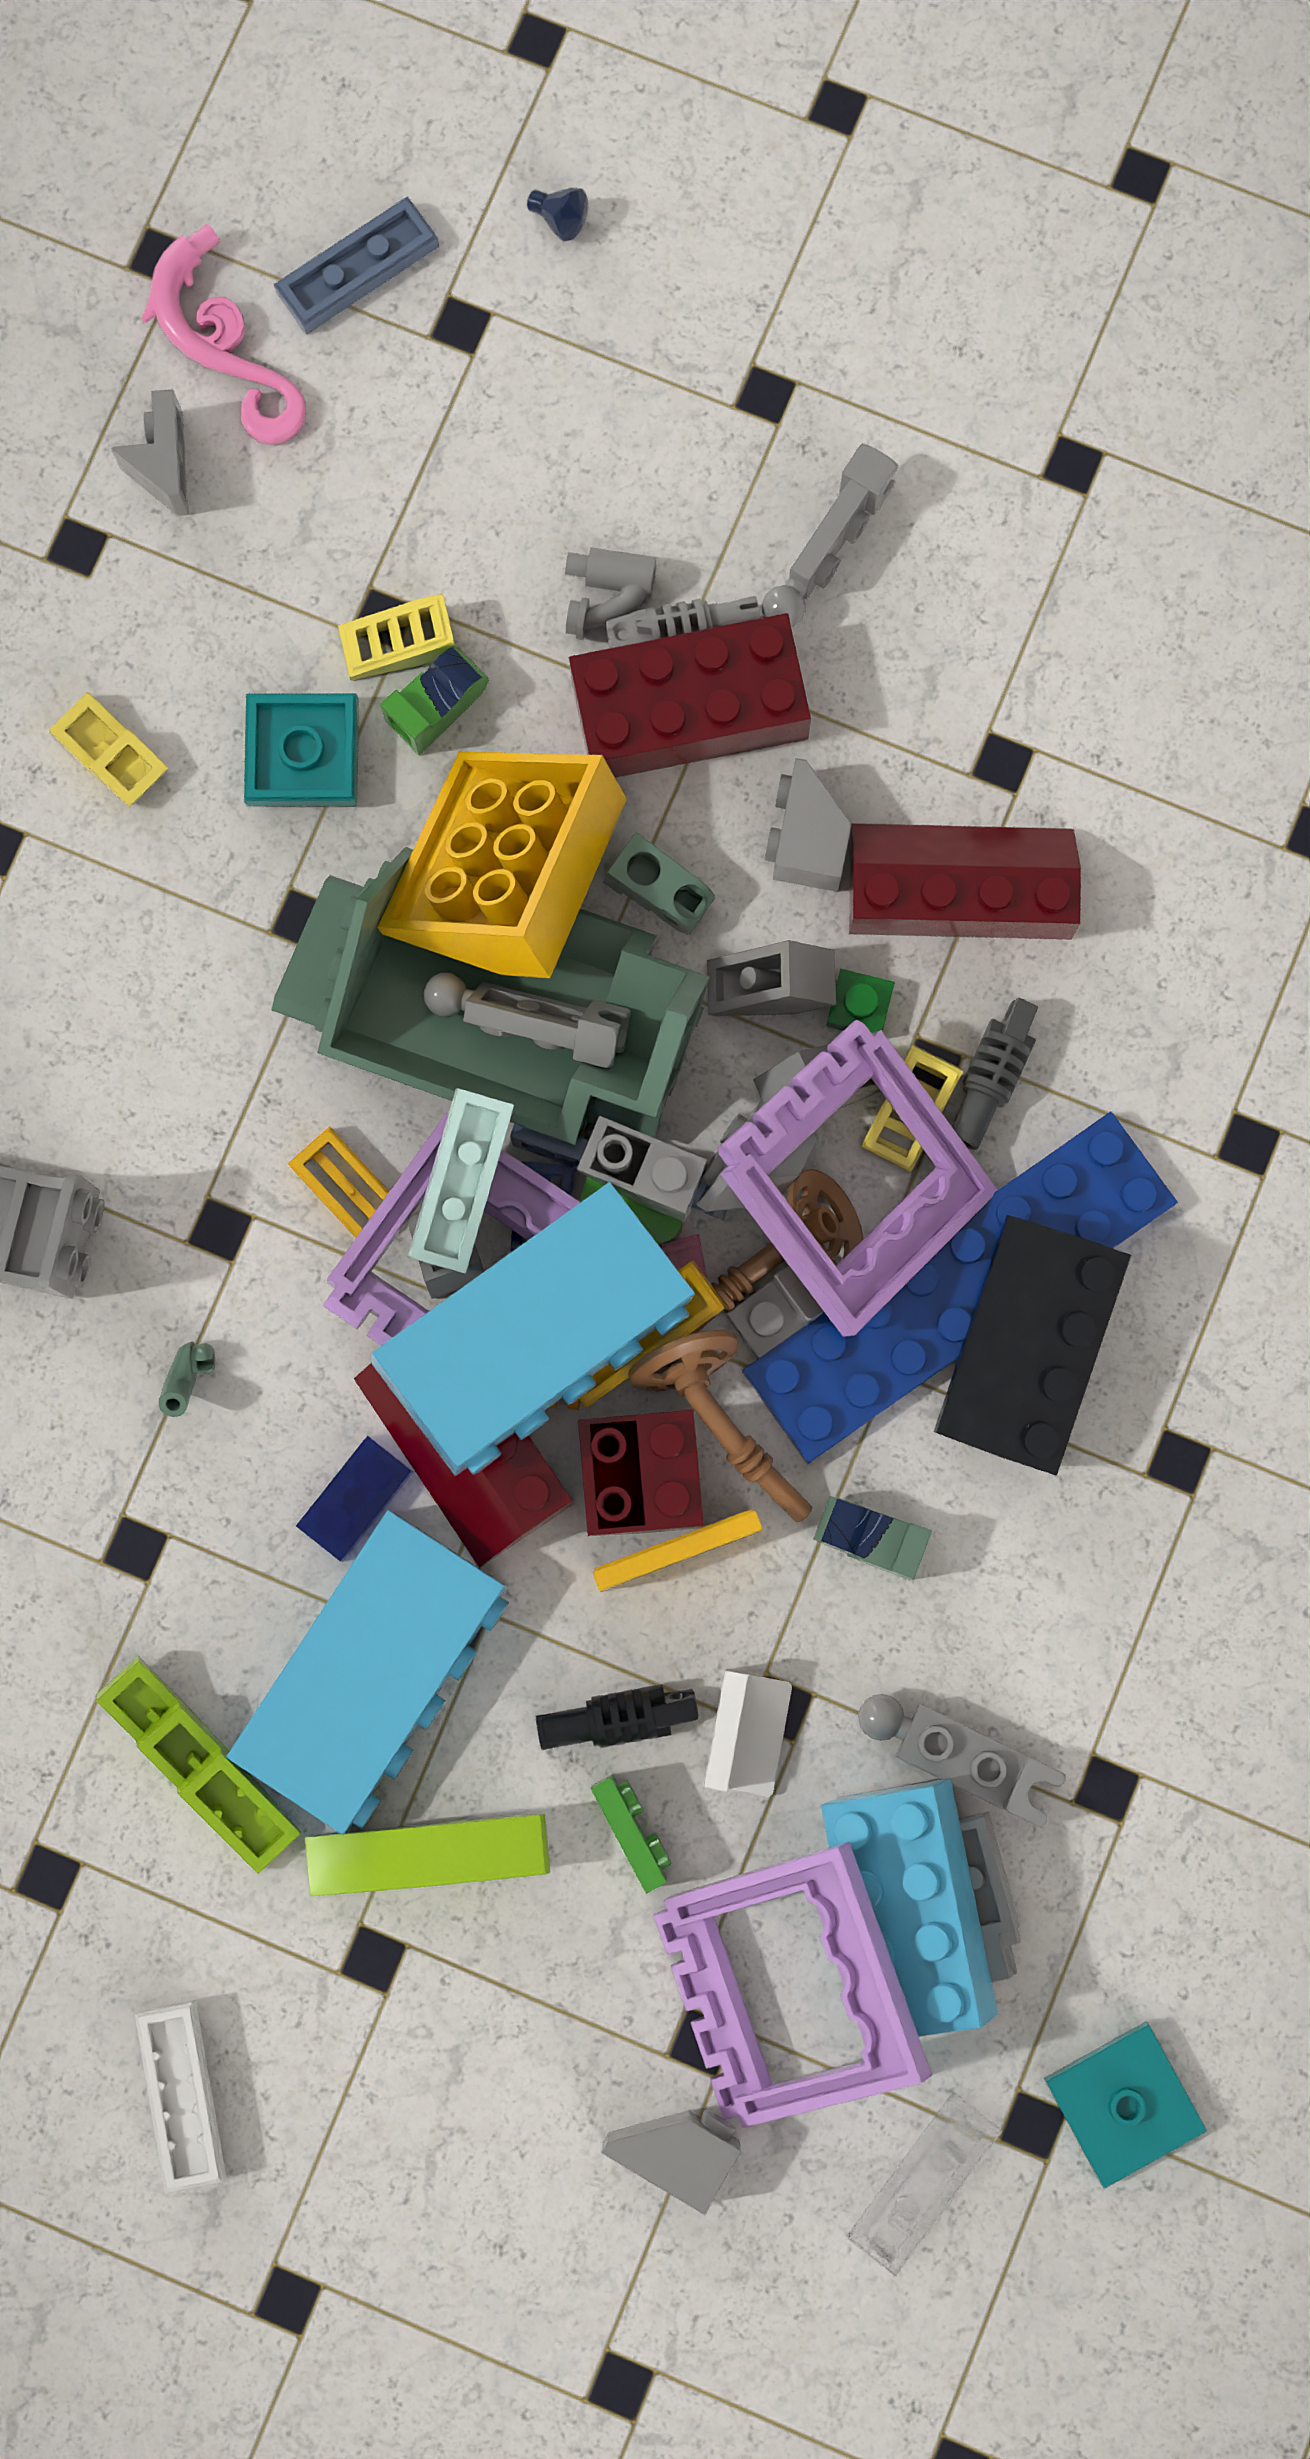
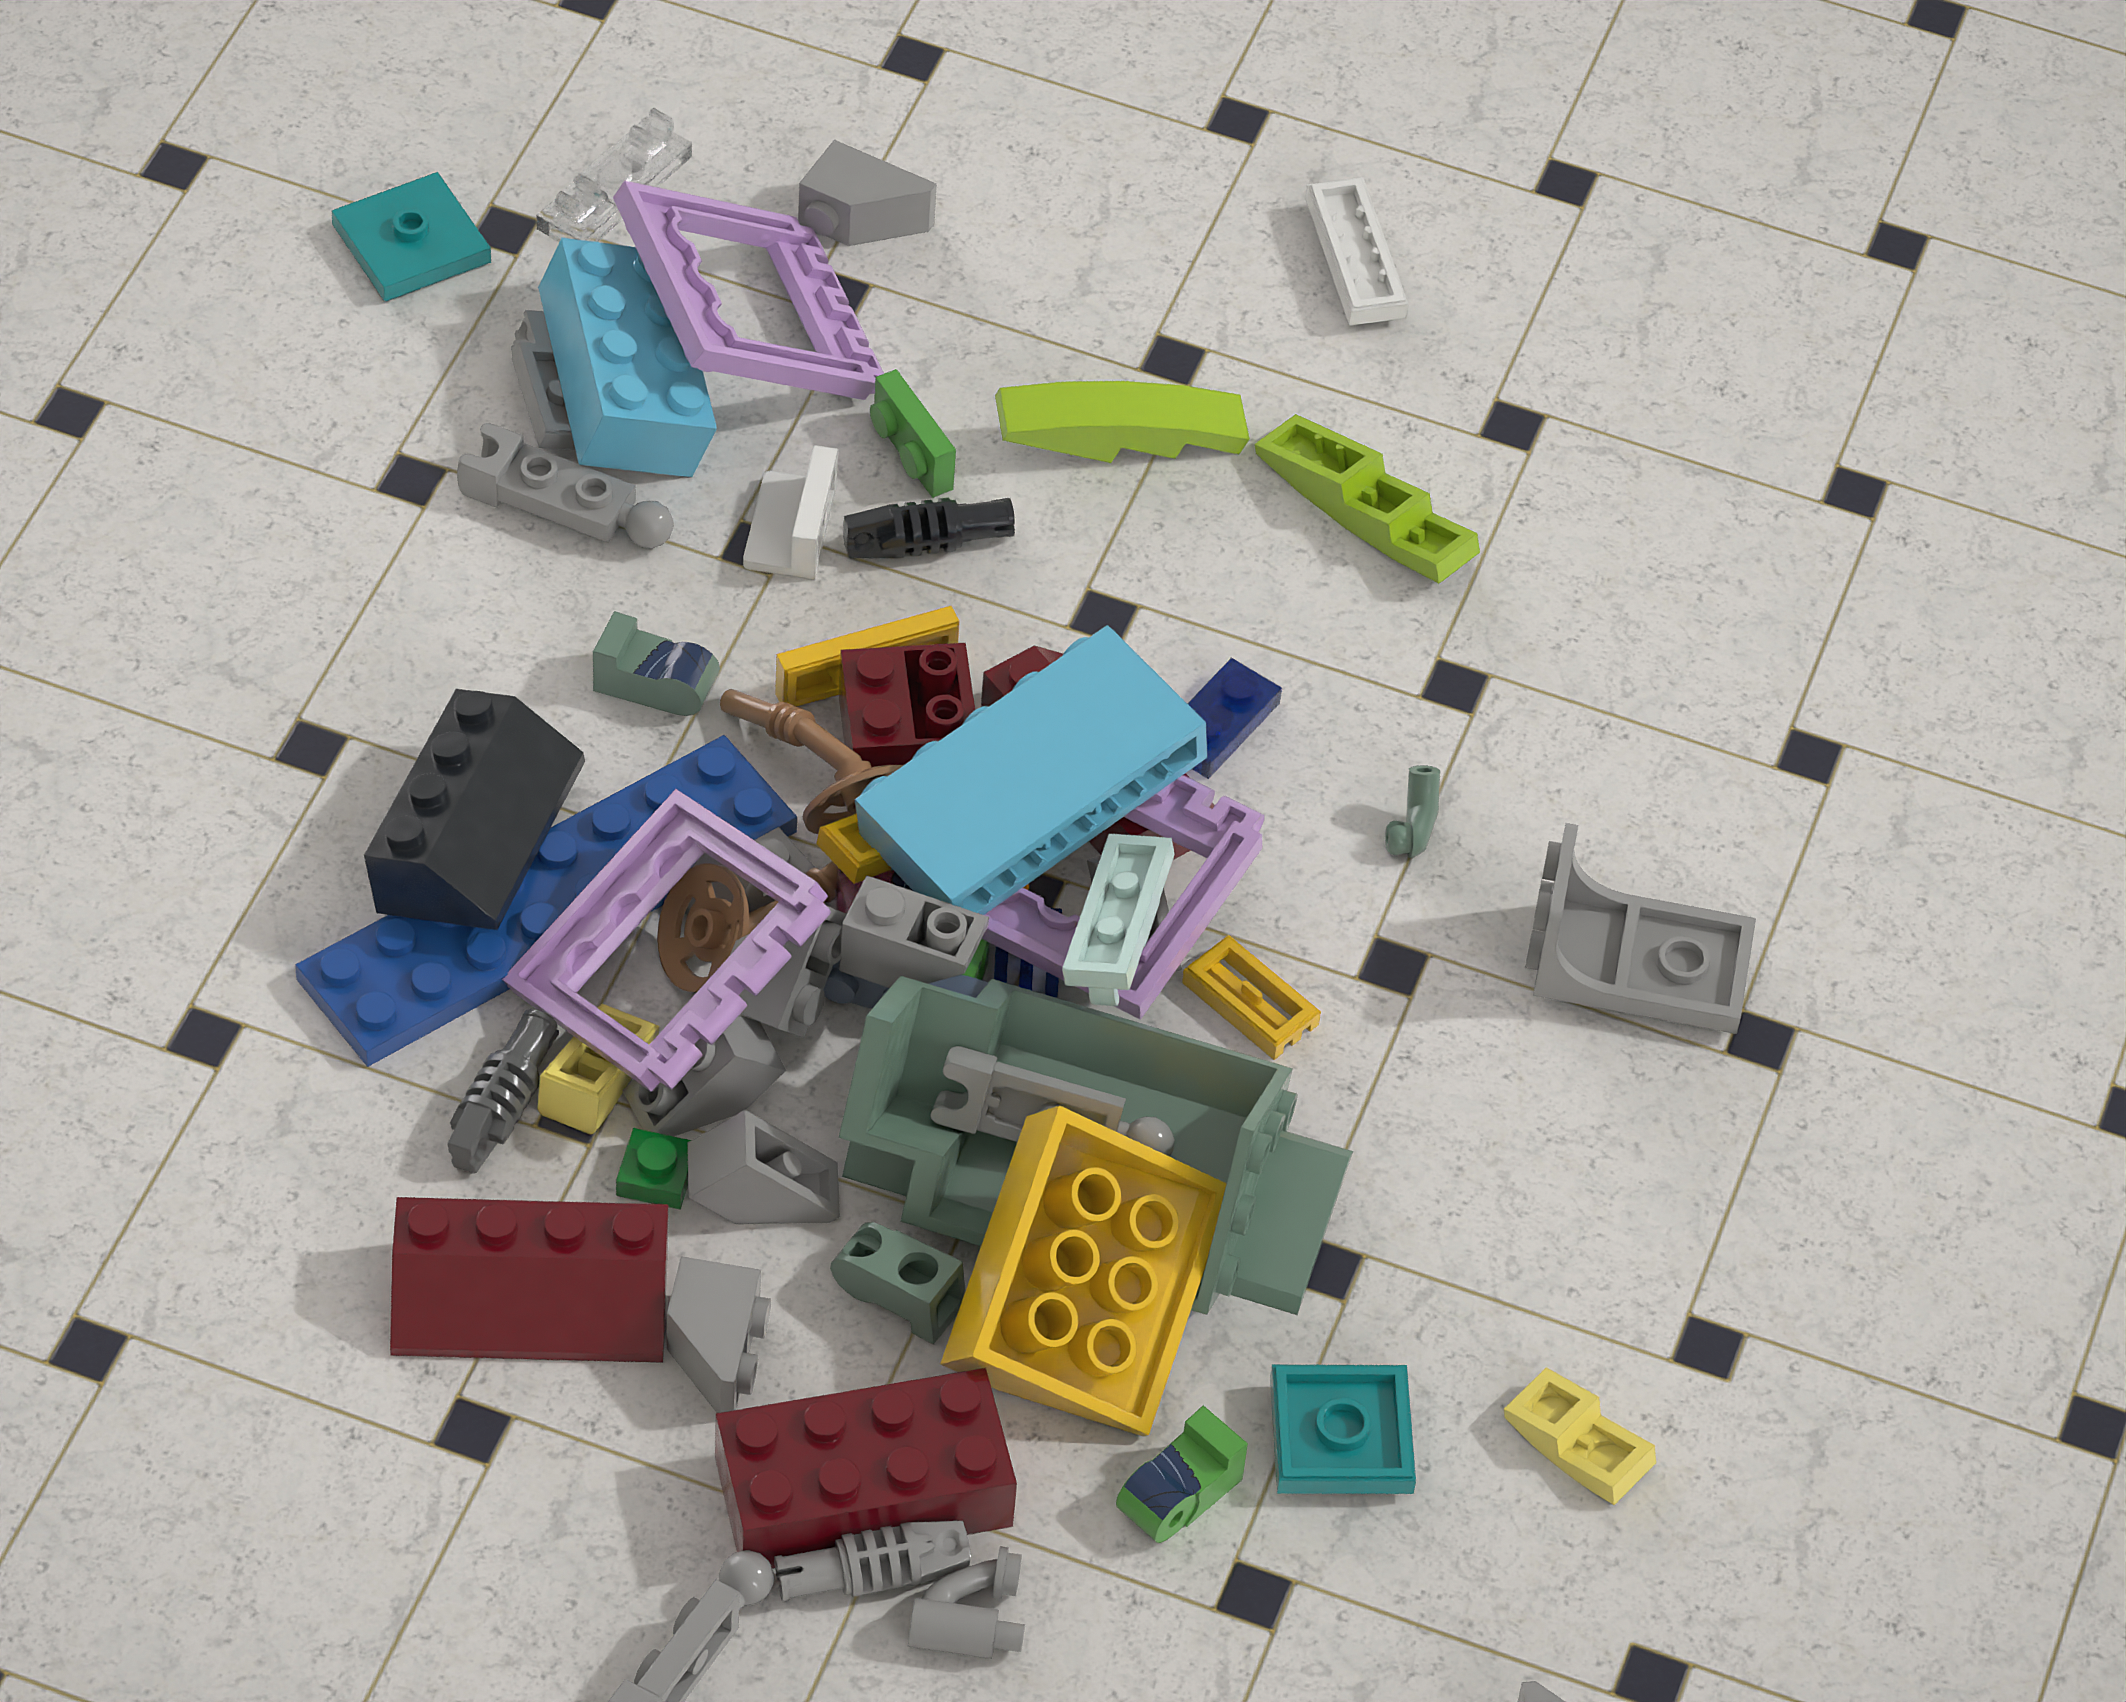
camera: 170 degrees right, 30 degrees down
(369, 1674) = (1197, 554): medium azure brick -> none
(408, 614) = (1214, 1580): light yellow slope -> none

